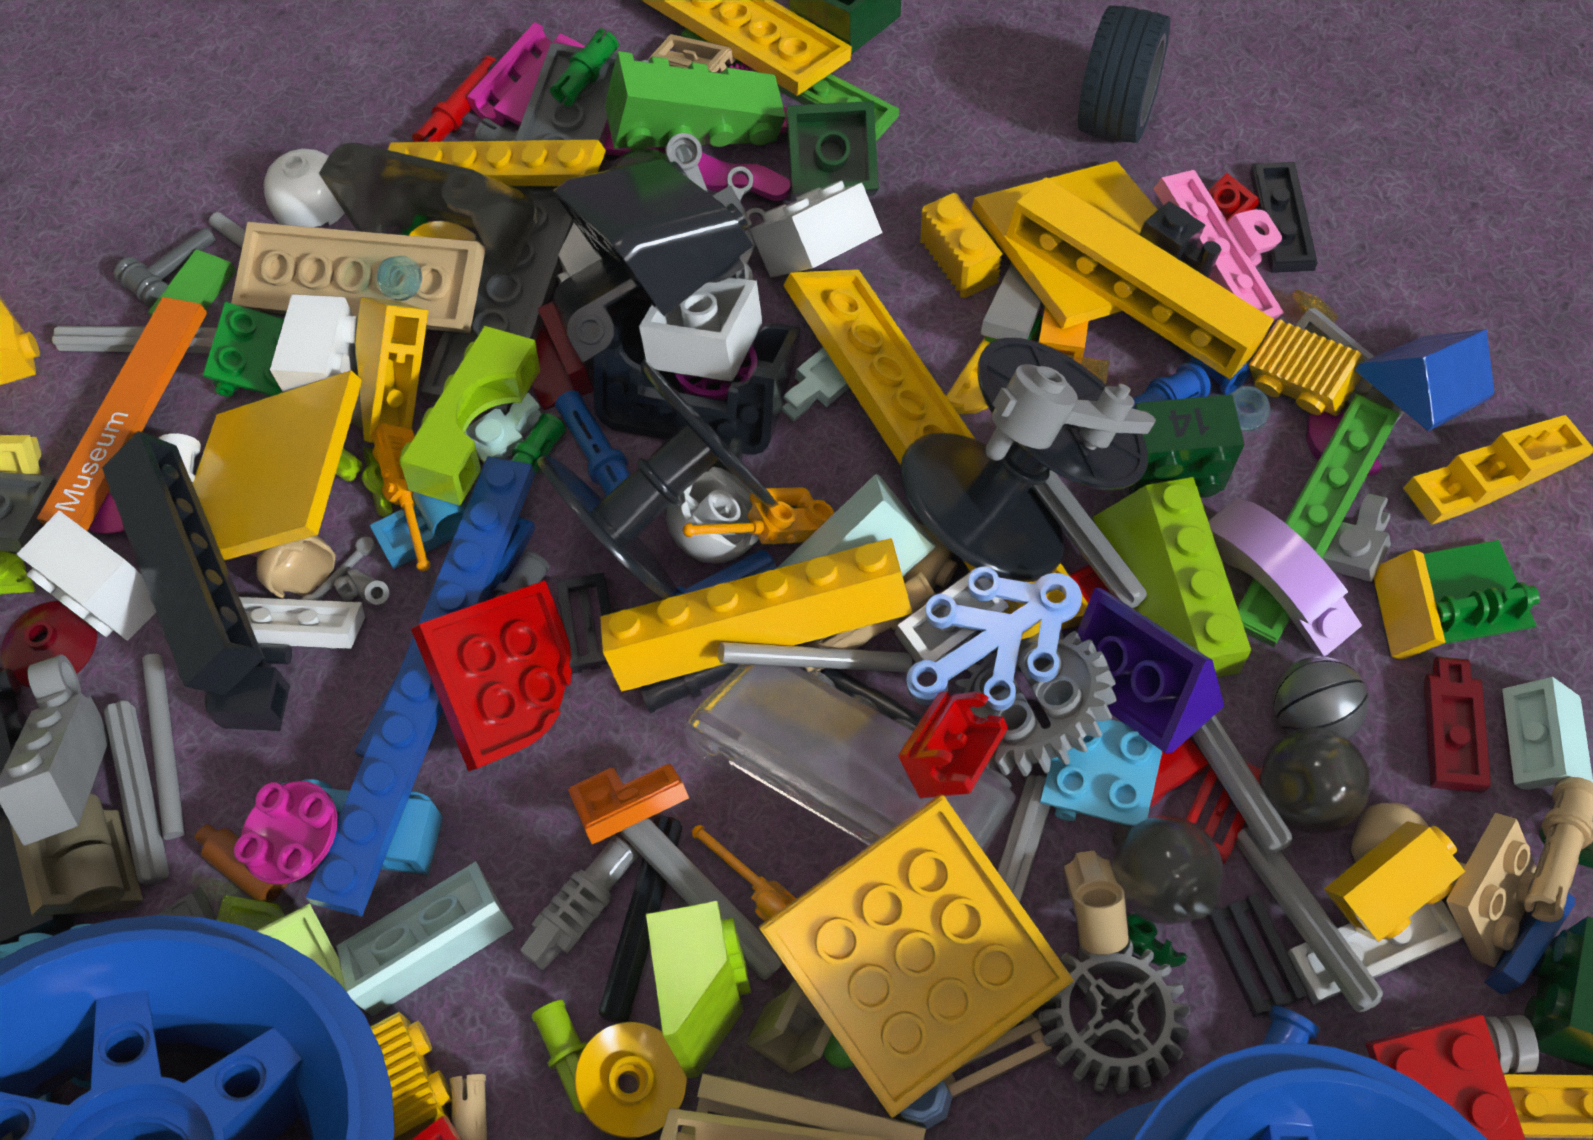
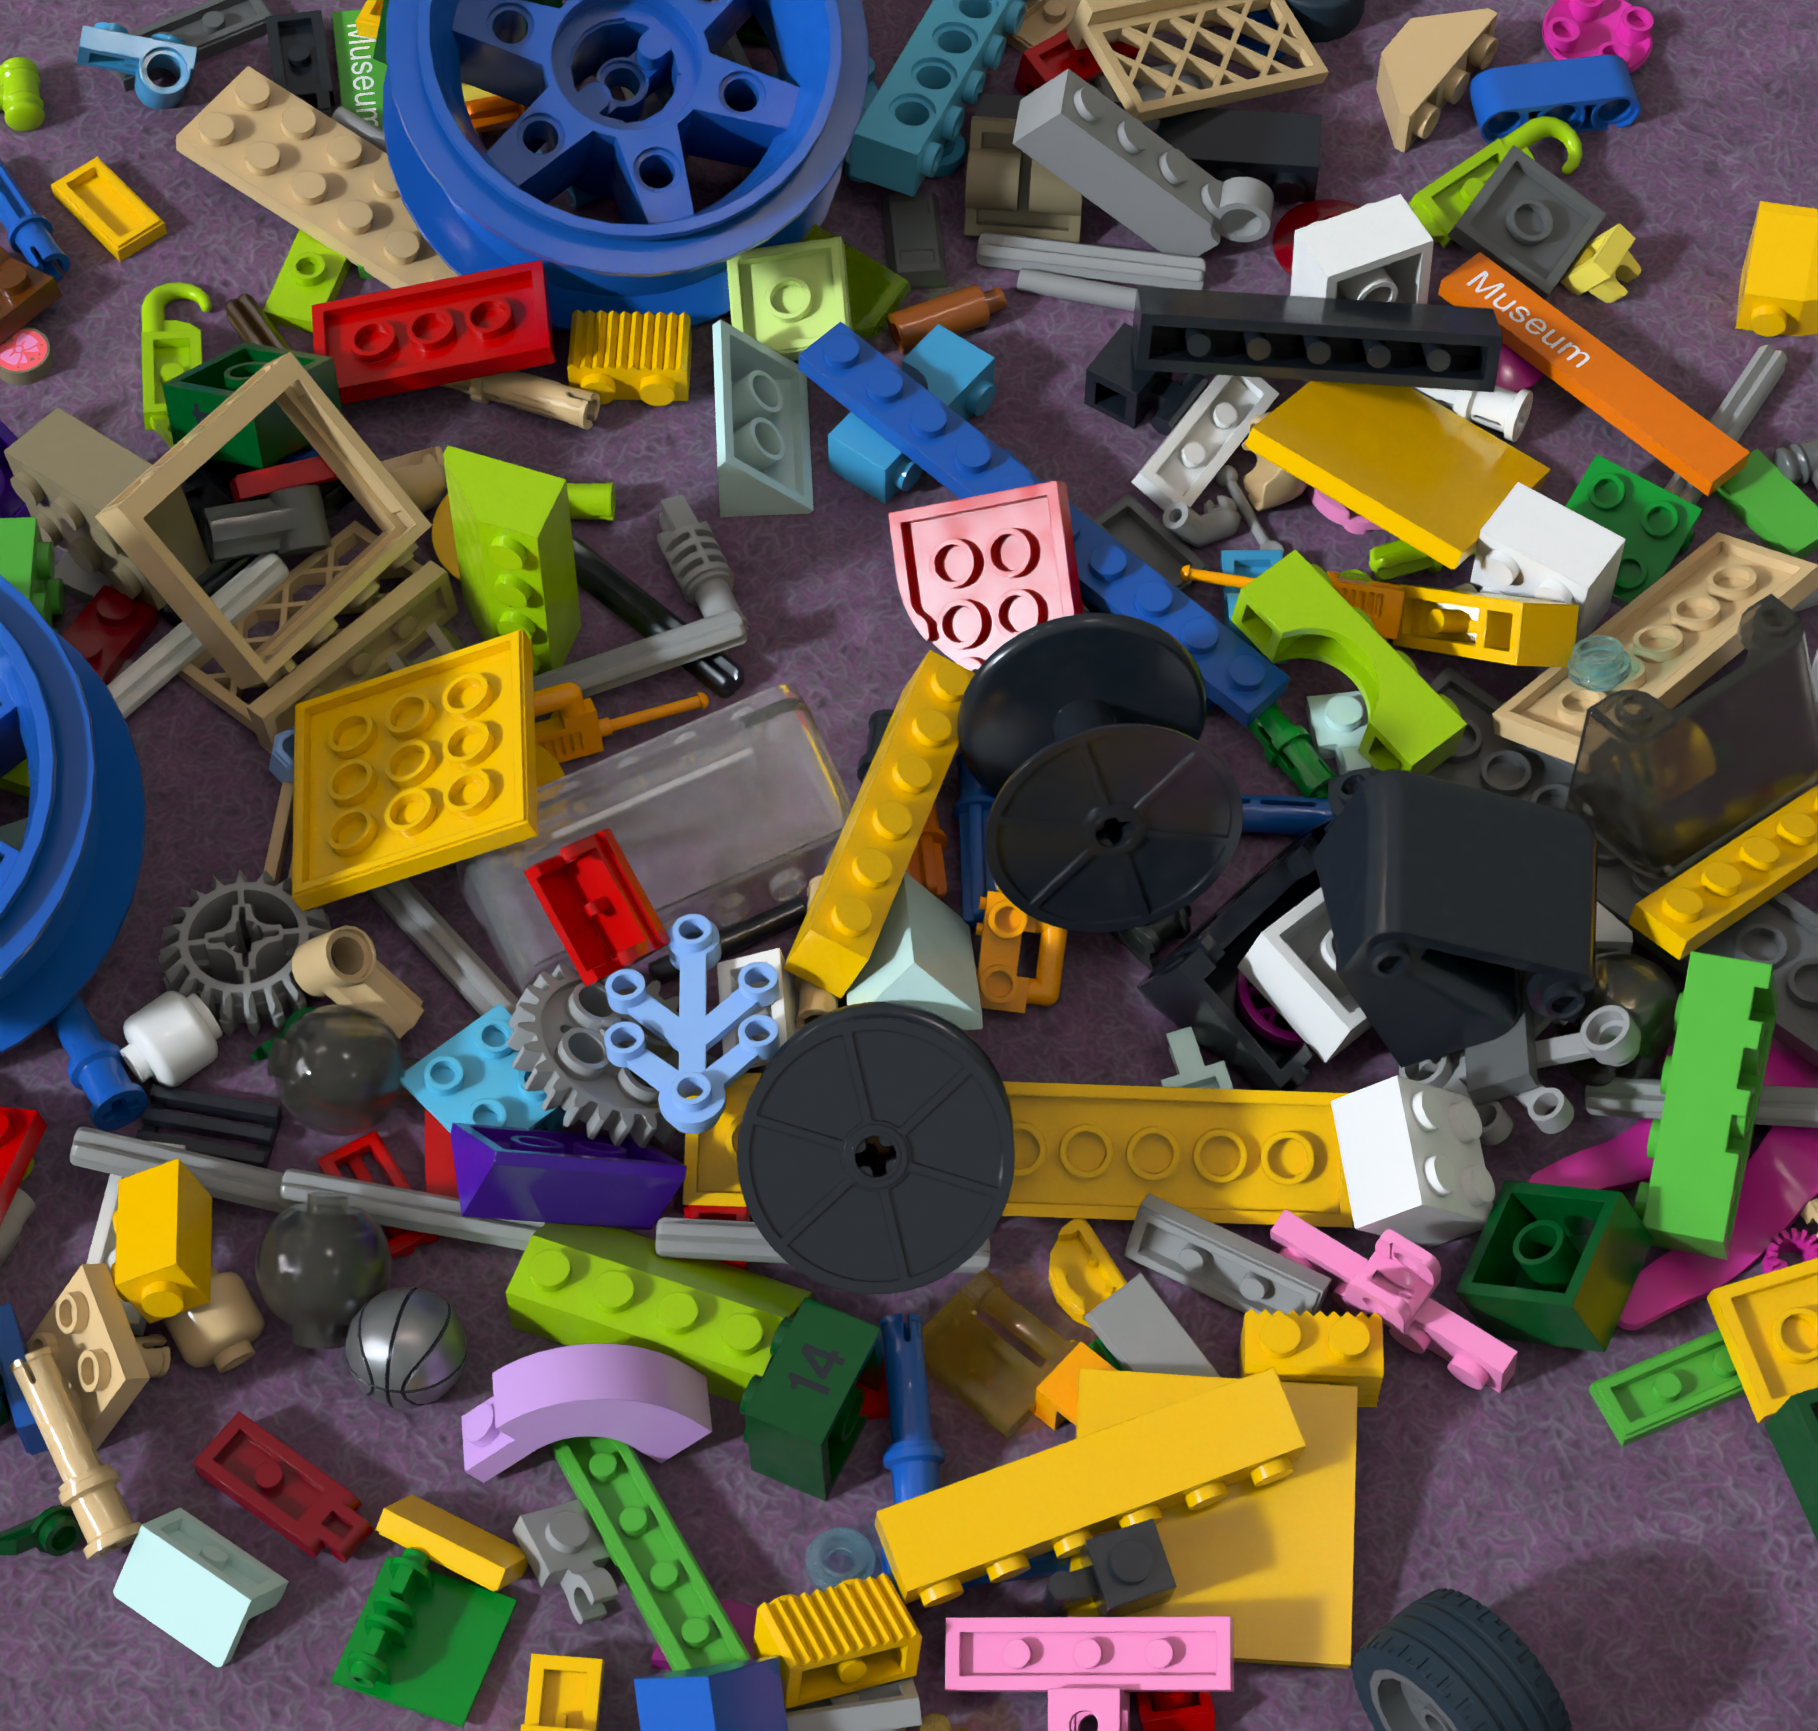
camera: 115 degrees right, 5 degrees down
(287, 832) = (925, 332): dark pink dish -> none
(402, 610) = (1149, 540): none -> dark grey tile
(610, 806) = (765, 623): orange tile -> none
(814, 657) = (818, 853): light grey bar -> none
(899, 213) = (1398, 1288): none -> bright pink plate
(929, 312) = (1221, 1262): none -> light grey tile
(1042, 401) = (849, 1041): light grey piece -> none
(1223, 1016) = (170, 1039): none -> white head

